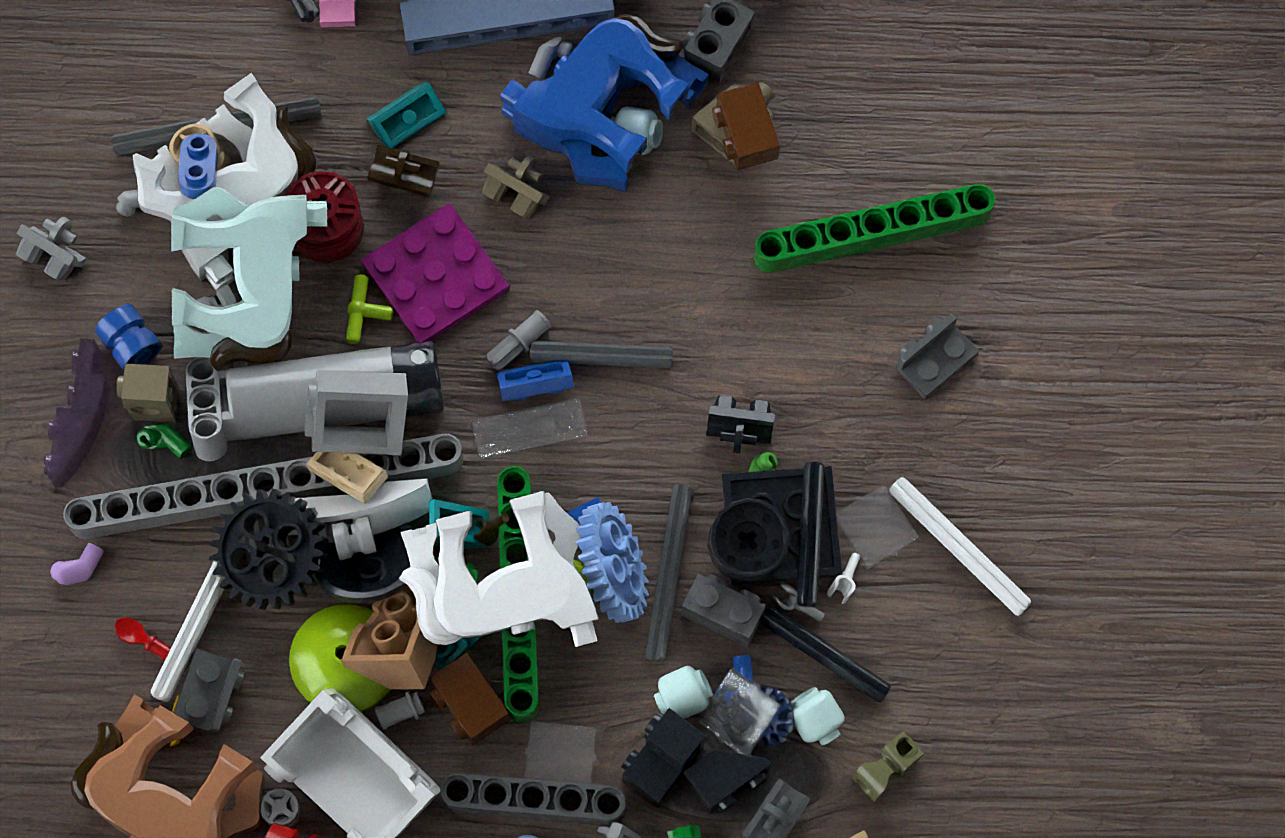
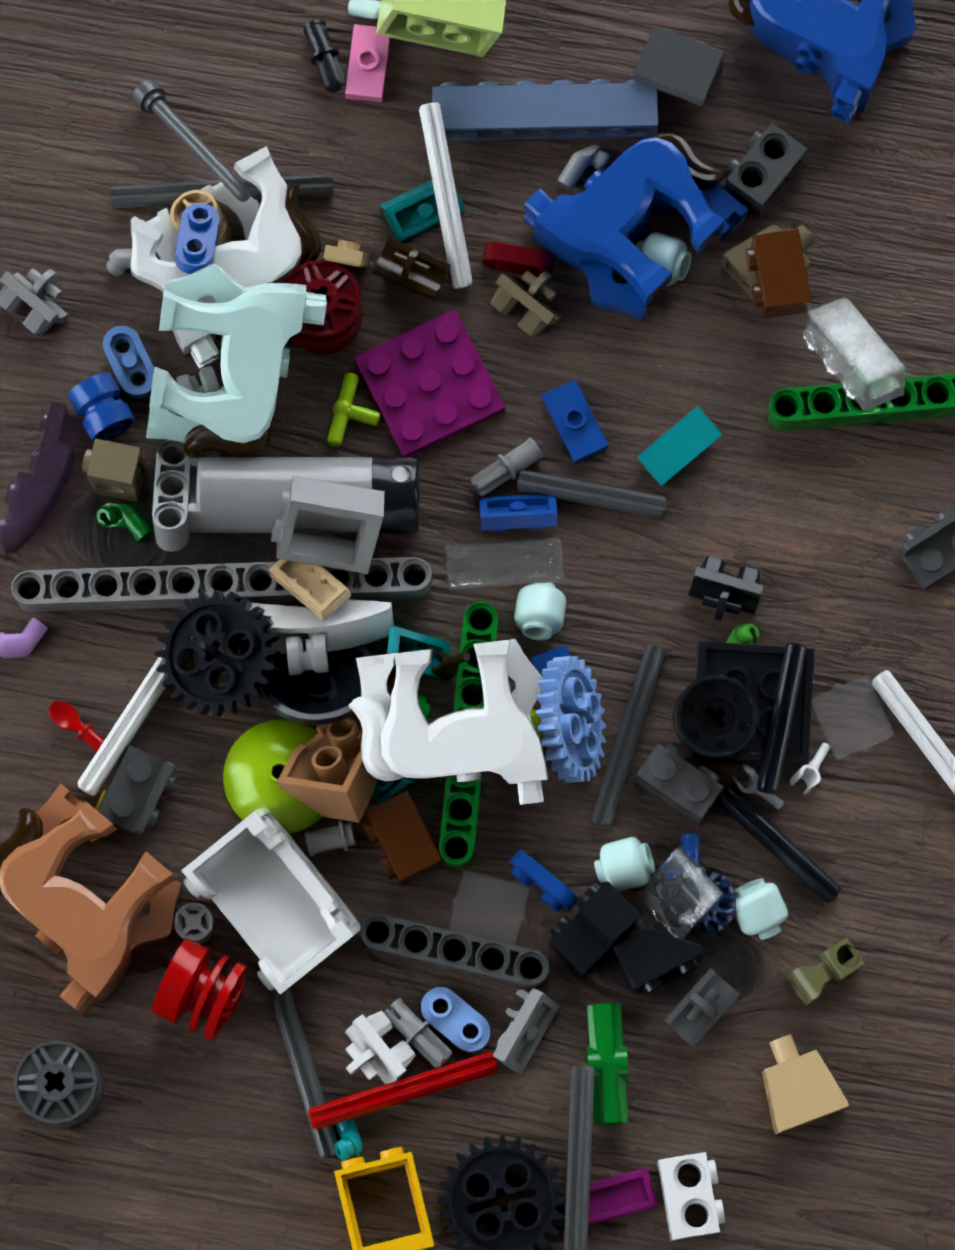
camera: 10 degrees right, 5 degrees up
(140, 51) = (152, 100): none -> dark grey piece
(151, 294) = (131, 363): none -> medium blue plate
(341, 164) = (347, 253): none -> tan plate
(426, 99) = (445, 195): none -> white axle
(500, 148) = (517, 258): none -> dark red beam
(568, 467) = (540, 610): none -> light aqua head
(576, 290) = (574, 421): none -> blue plate
(594, 713) = (555, 893): none -> blue plate
(677, 298) = (679, 445): none -> teal slope
(827, 190) = (854, 353): none -> clear brick

